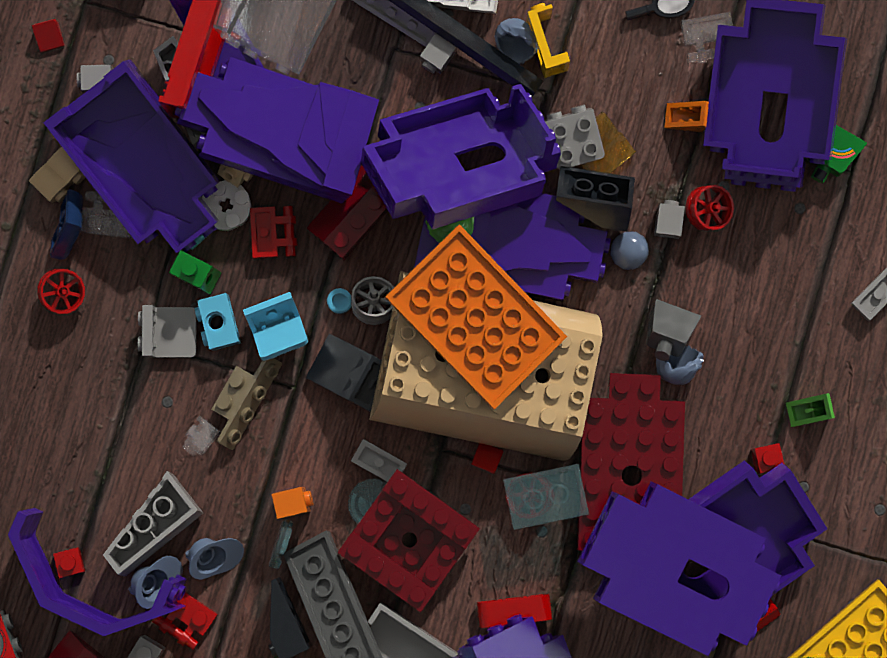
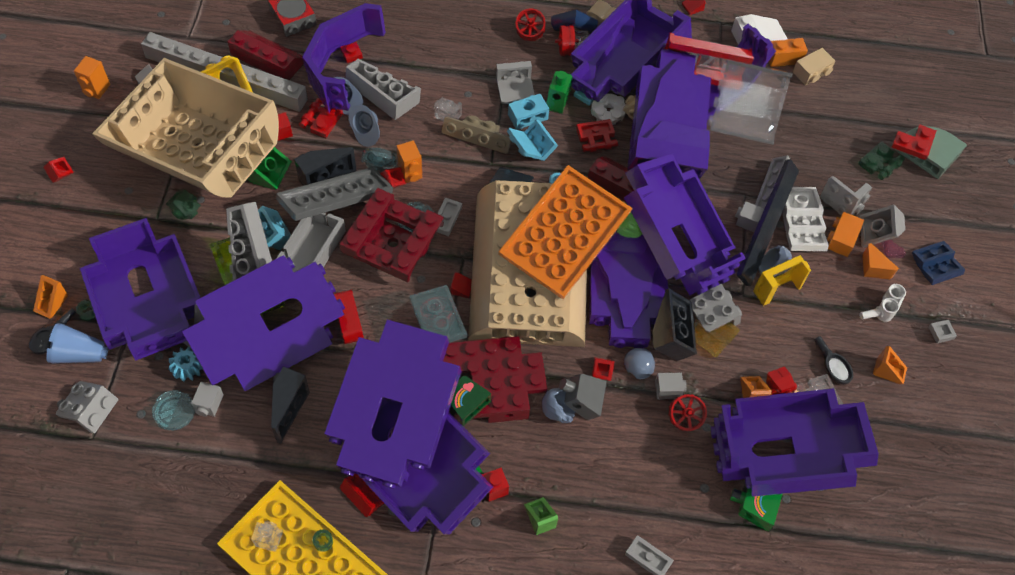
camera: 70 degrees right, 25 degrees down
(102, 243) = (566, 40): none -> red wheel
(305, 527) = (394, 177): none -> red slope
(628, 297) = (603, 368): none -> red slope
(671, 474) = (468, 400): none -> dark green torso
(689, 81) = (781, 381): none -> red piece

